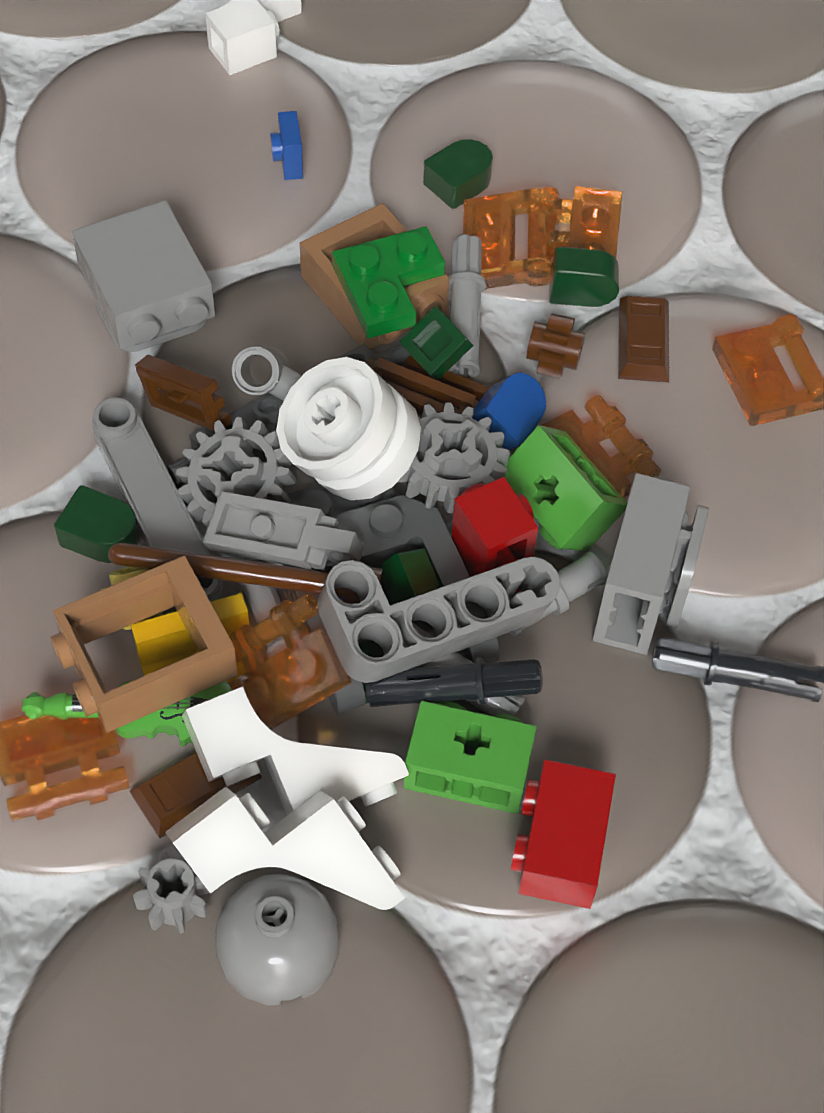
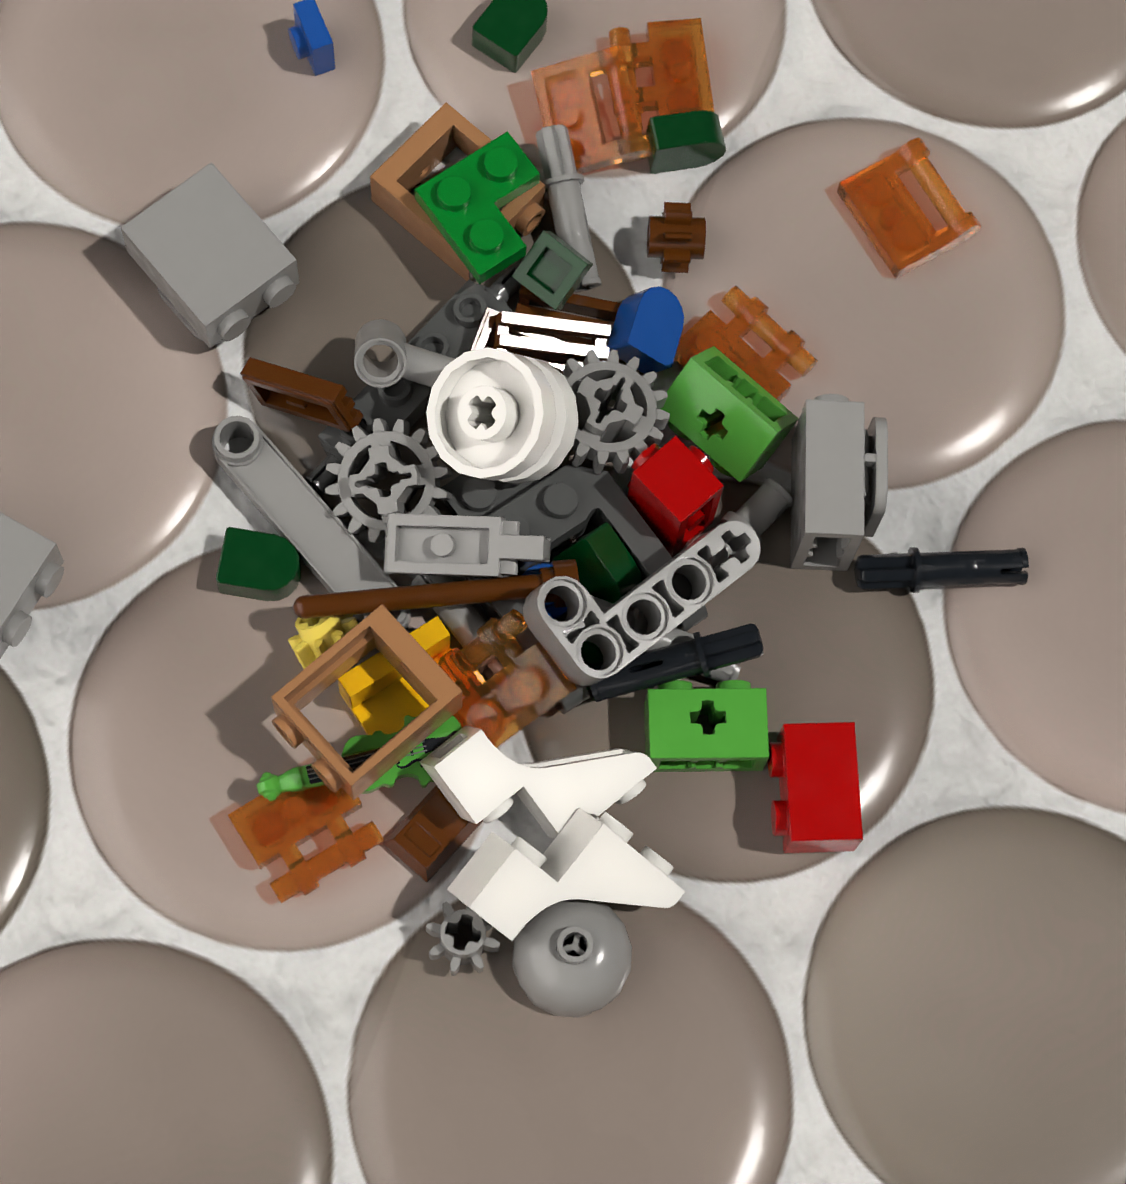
camera: 20 degrees left, 15 degrees up
(643, 339) = (763, 199): reddish brown tile -> none

